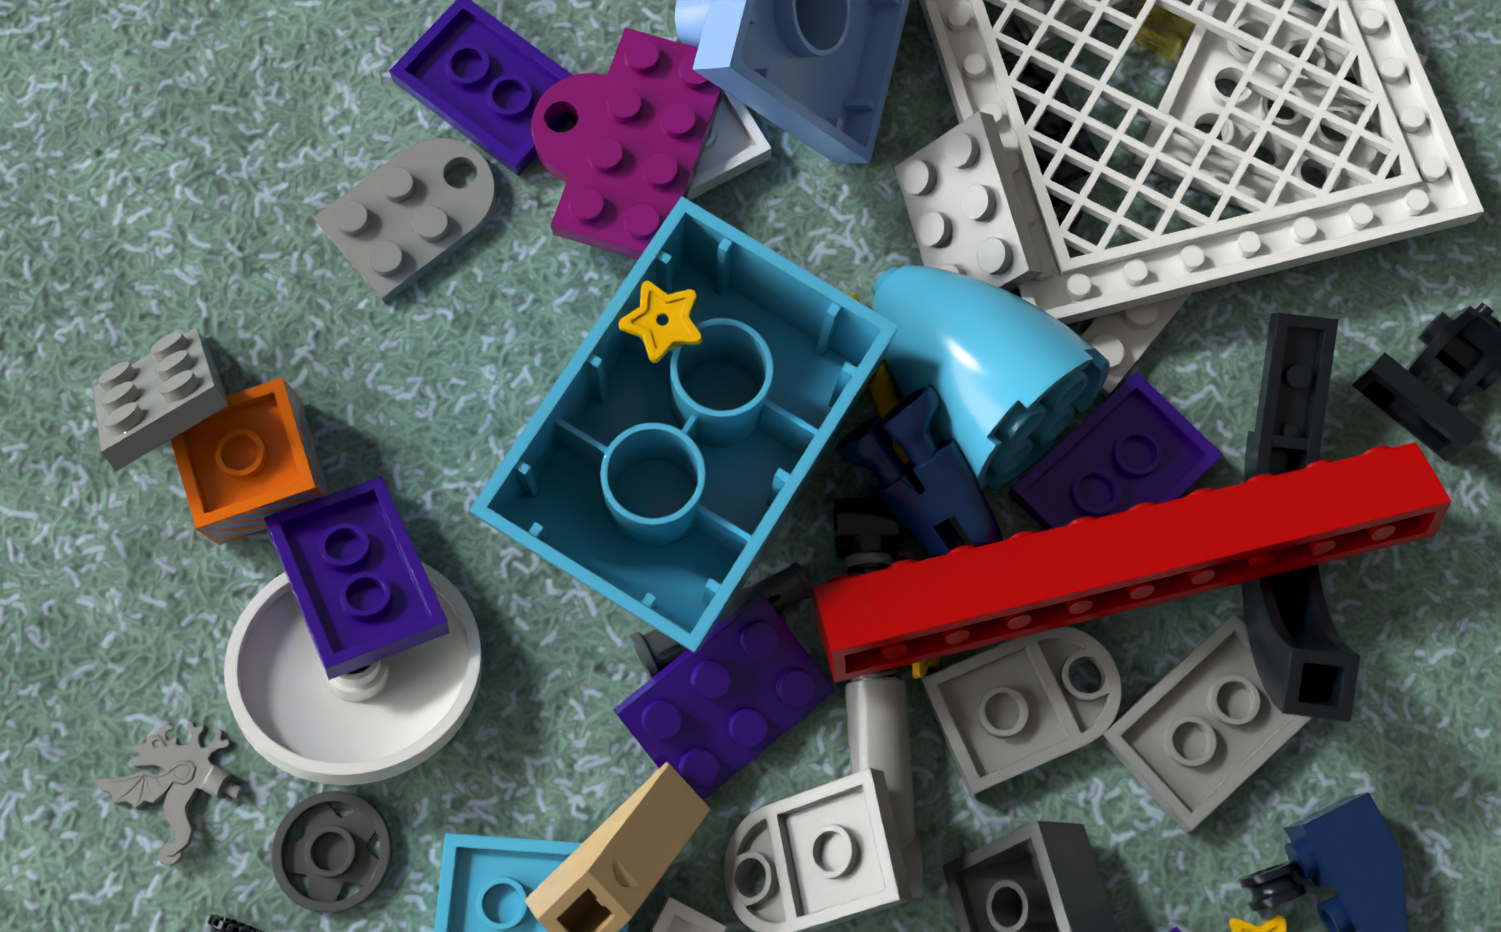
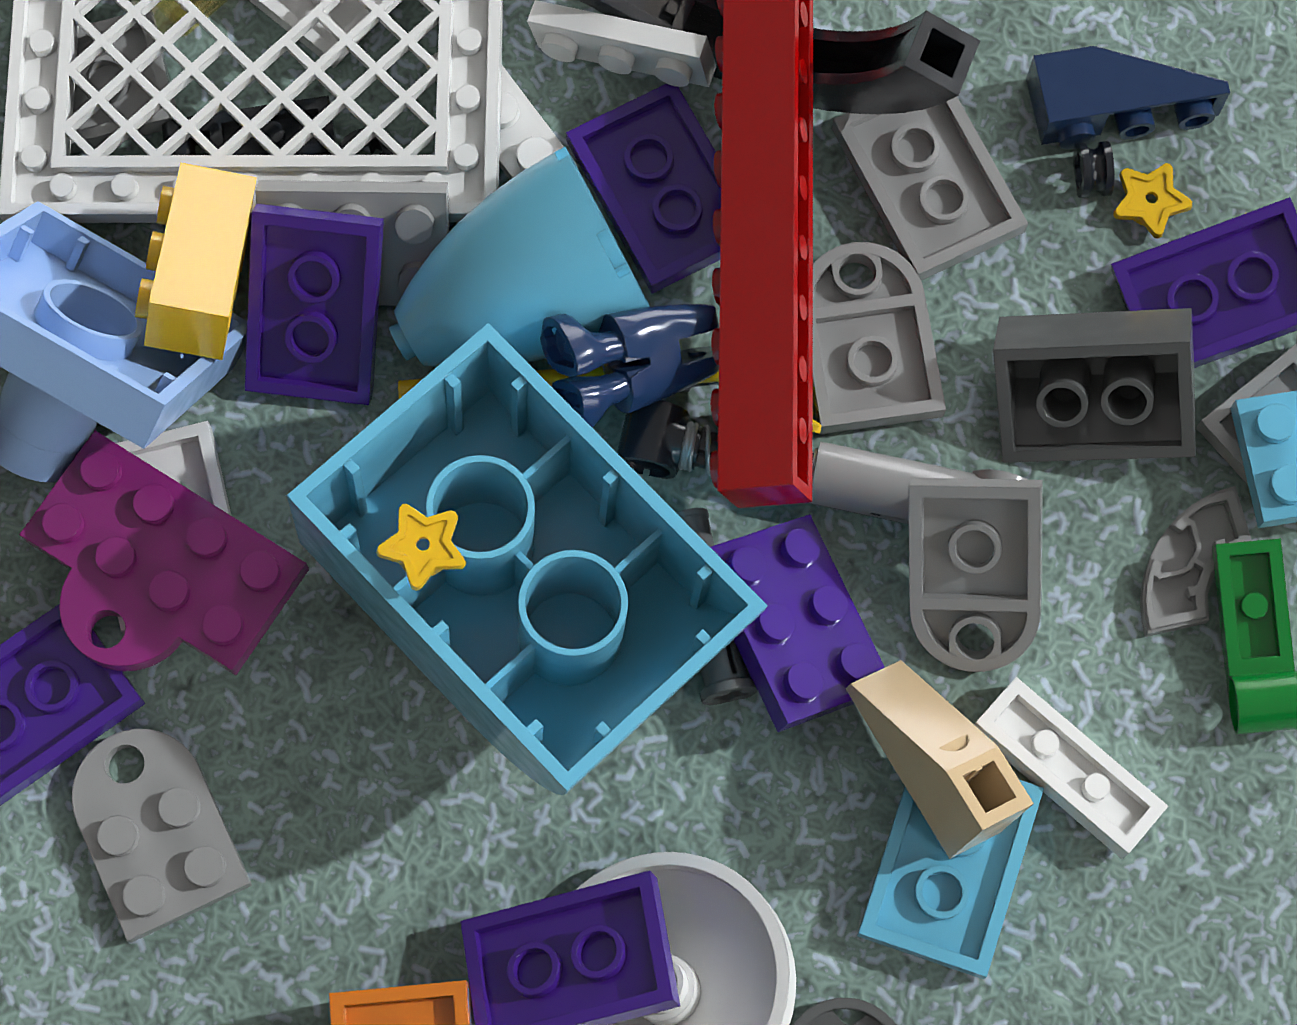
camera: 75 degrees left, 0 degrees up
(894, 81) = (196, 261): none -> yellow wedge
(897, 195) = (313, 304): none -> dark purple plate
(1239, 395) = (622, 44): none -> white plate

